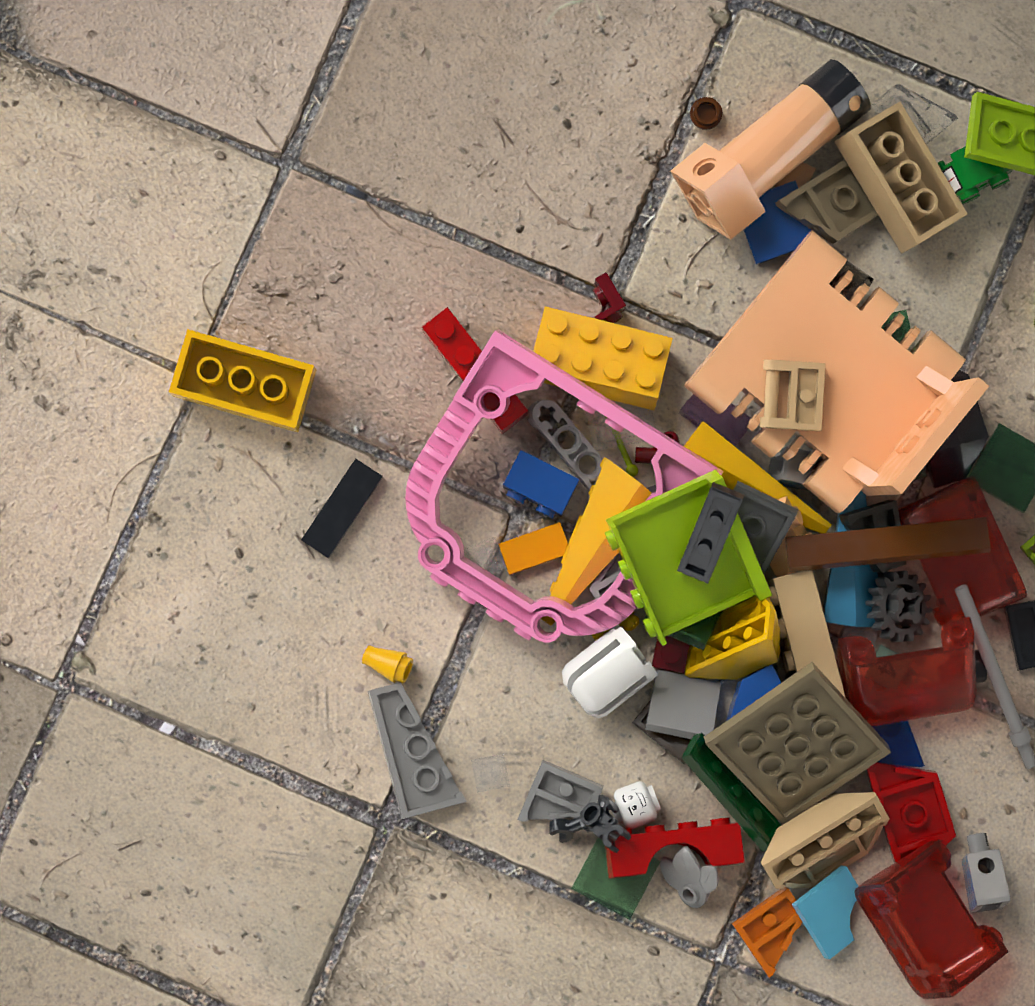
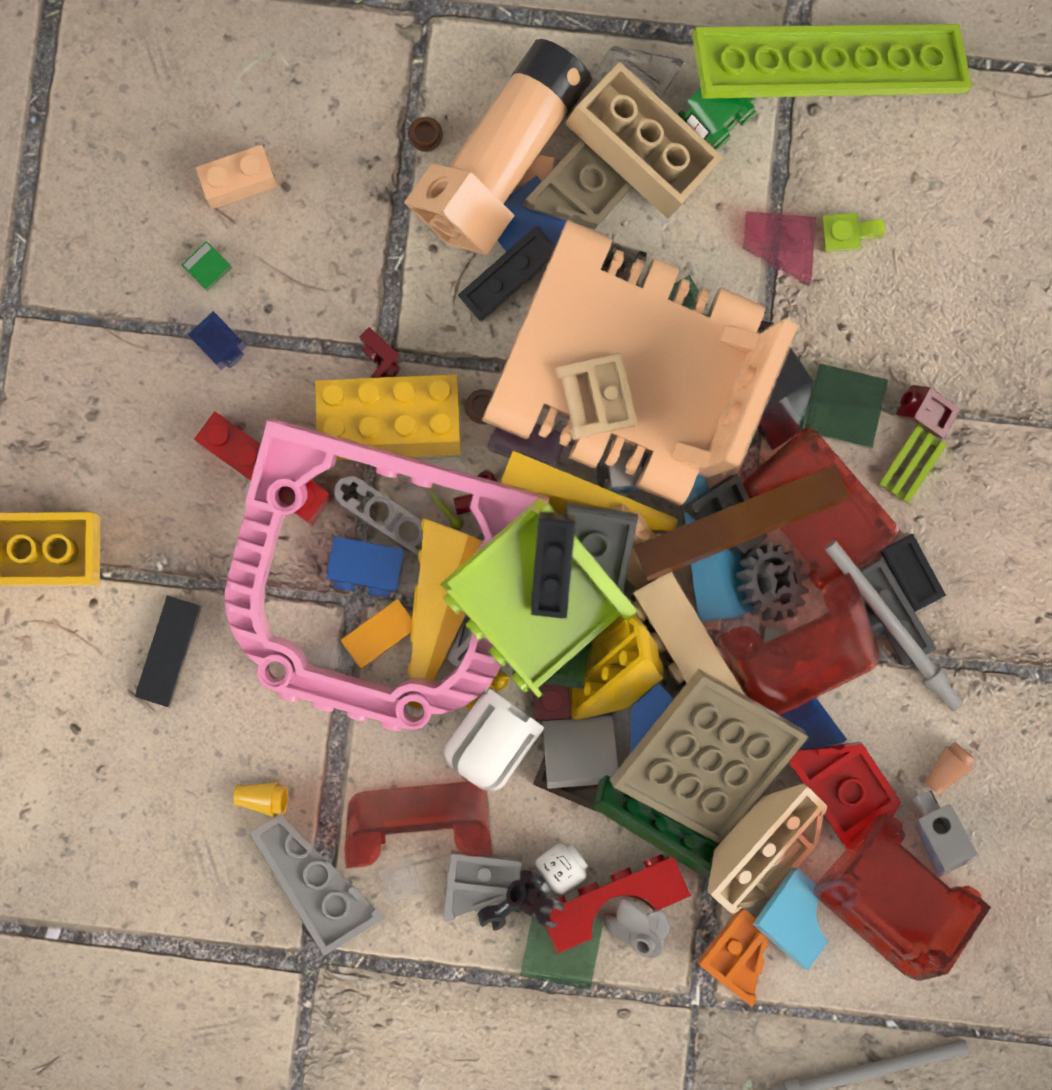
camera: 15 degrees left, 0 degrees up
(467, 245) = (218, 341): none -> clear blue brick
(476, 174) = (206, 266): none -> green tile
(524, 713) = (417, 809): none -> clear red windscreen
(526, 102) = (236, 177): none -> light nougat brick
(682, 370) = (477, 404): none -> reddish brown plate
(744, 261) = (508, 274): none -> black tile
(998, 304) = (782, 241): none -> clear pink wing
(1000, 641) = (888, 589): none -> dark grey tile
(1009, 818) = (949, 768): none -> nougat cone

